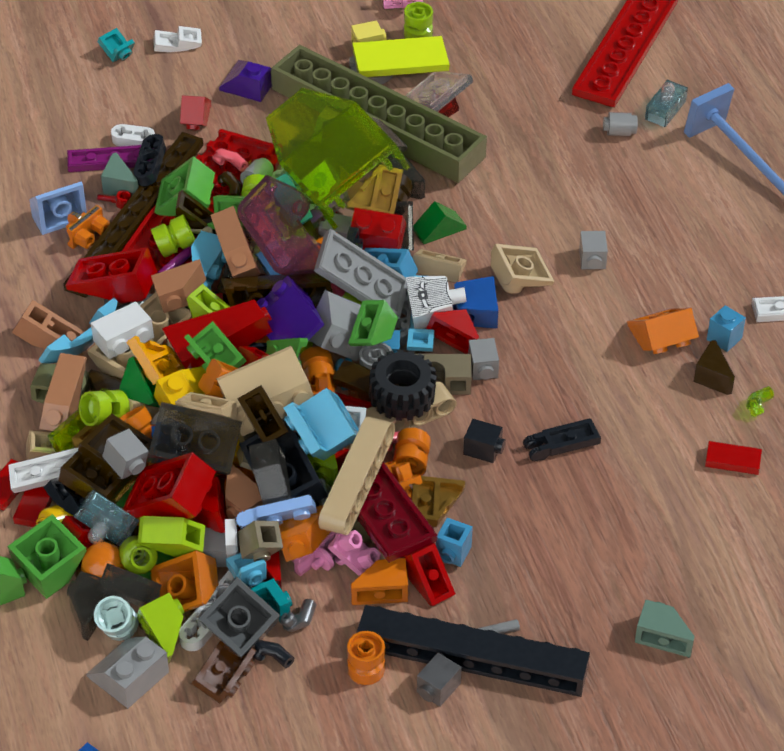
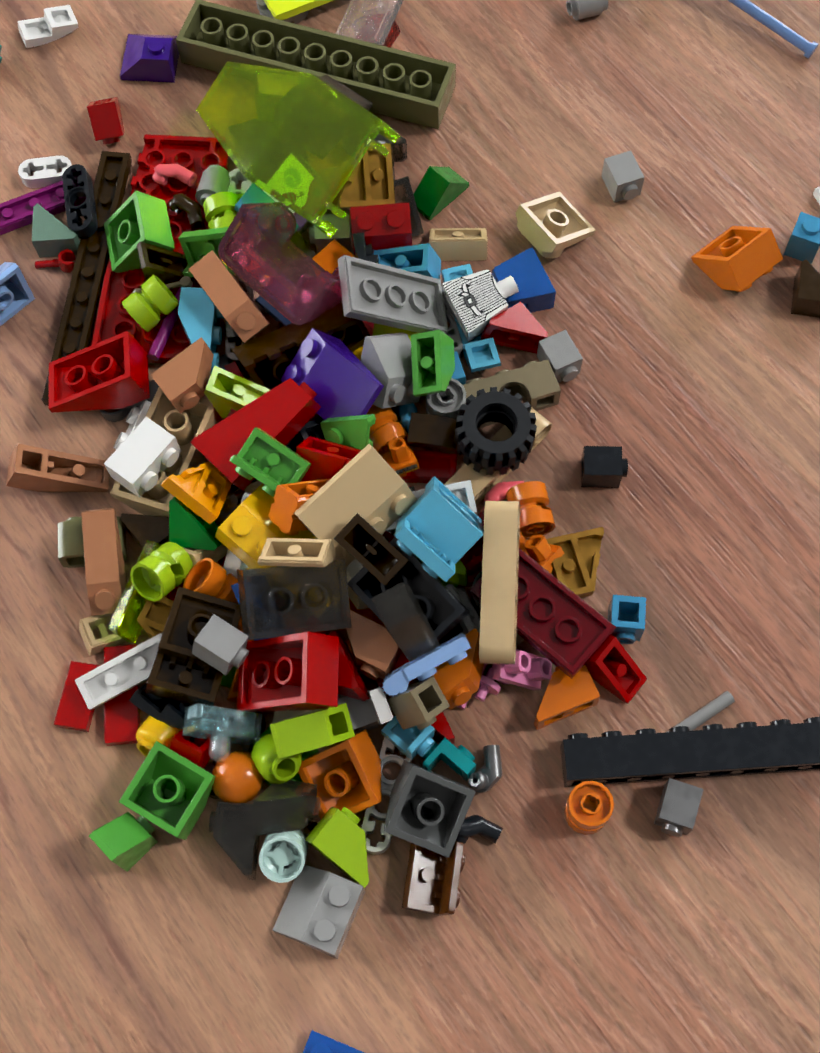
camera: 15 degrees left, 20 degrees up
(81, 343) = (107, 440): medium azure slope -> none
(84, 225) = (34, 311): orange hips -> none
(562, 439) = (687, 435): black hinge -> none

